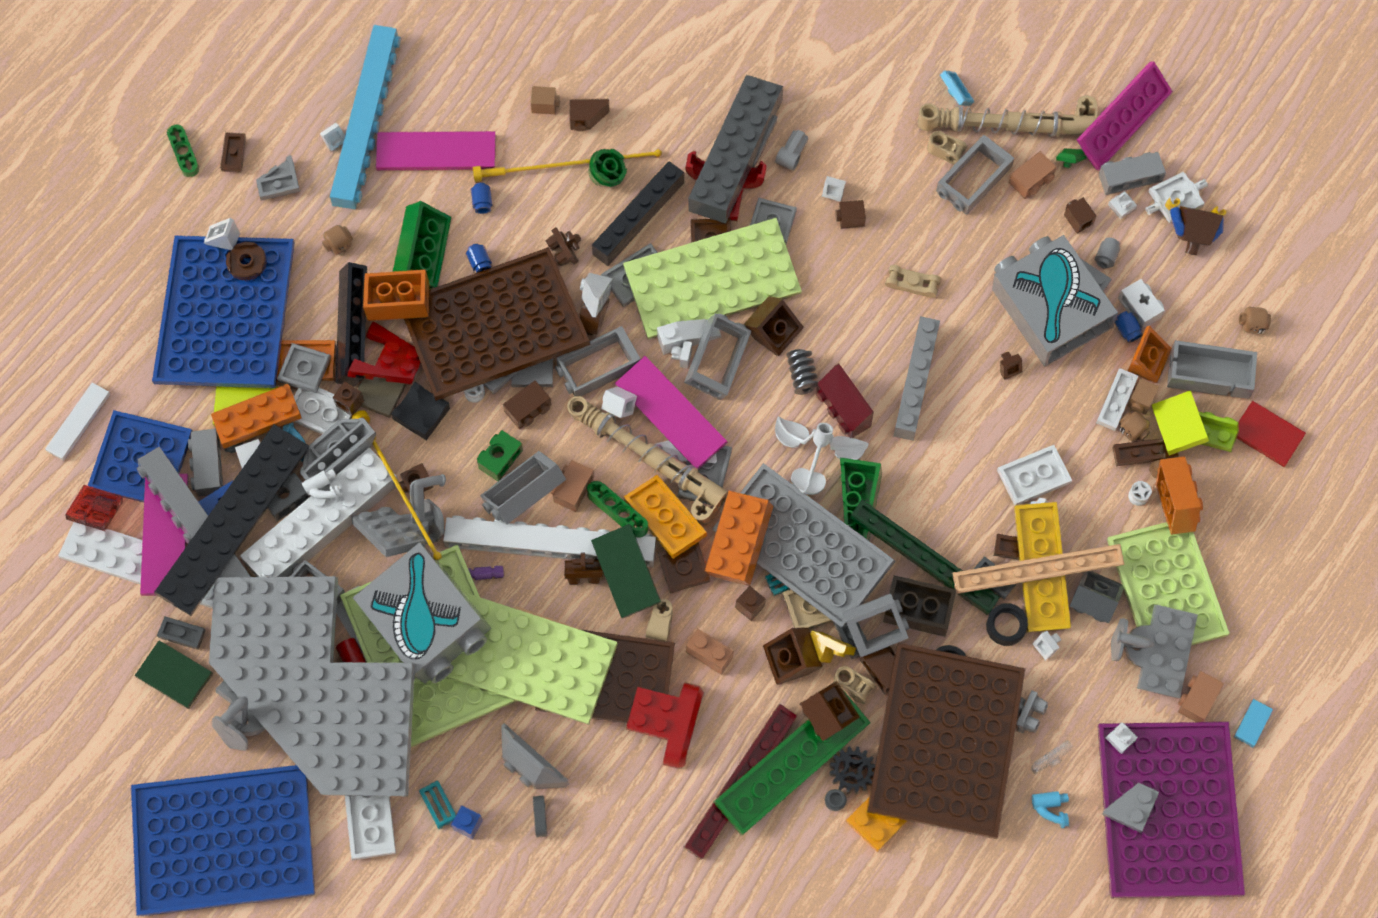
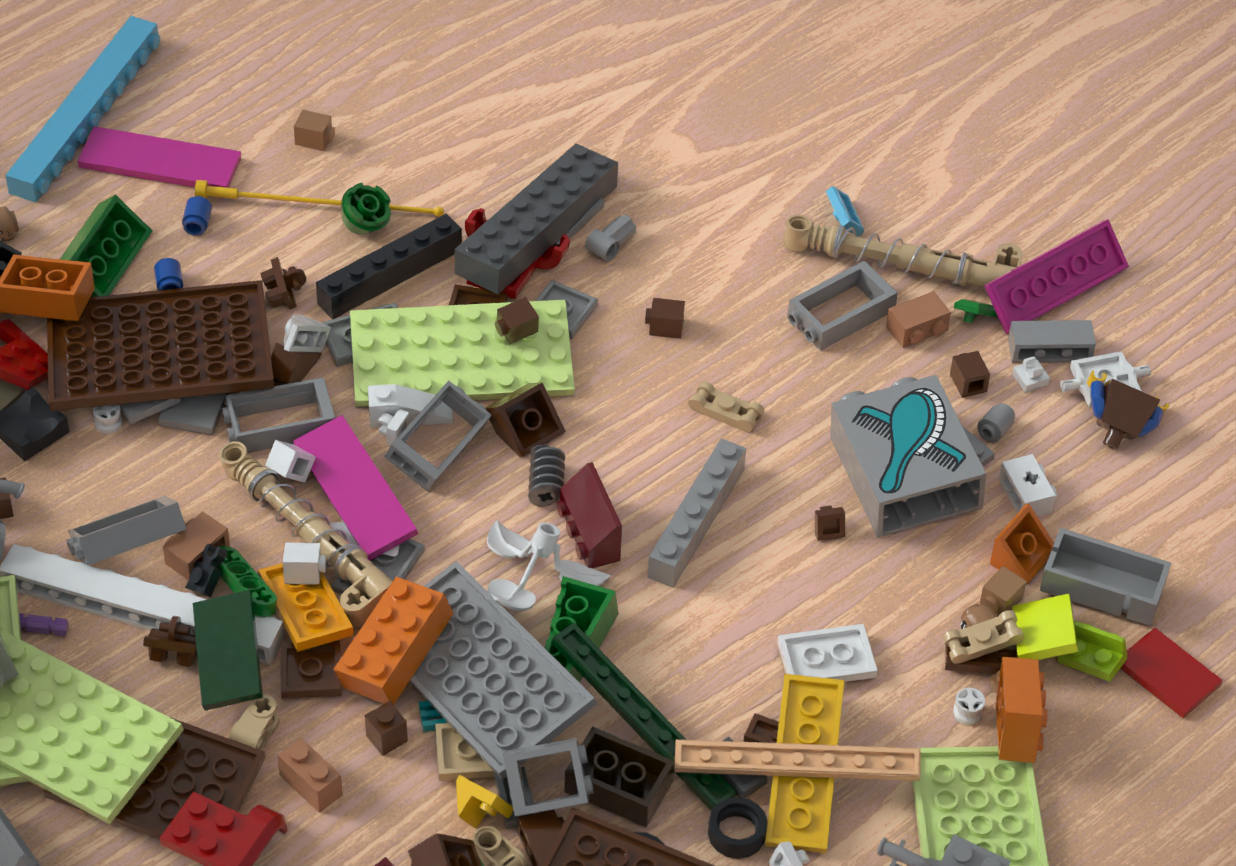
camera: 10 degrees right, 20 degrees down
(333, 136) = (35, 119): white tile -> none
(495, 466) = (112, 492): green brick -> none
(527, 405) = (170, 444): reddish brown brick -> none
(587, 113) = (363, 152): reddish brown slope -> none
(588, 509) = (206, 574): none -> black plate
(656, 488) = (303, 563): none -> white brick
(749, 248) = (517, 320): none -> reddish brown brick
(792, 655) = (423, 803): reddish brown slope -> none
(833, 188) = (651, 285): white tile -> none
(947, 148) = (811, 267): tan piece -> none
(1097, 596) = (873, 816): dark grey slope -> none
(1117, 399) = (964, 590): white plate -> none
(1128, 326) = (1001, 507): blue brick -> none
(1140, 441) = (983, 637): none -> tan plate
(1255, 320) = (1180, 534): medium nougat head -> none

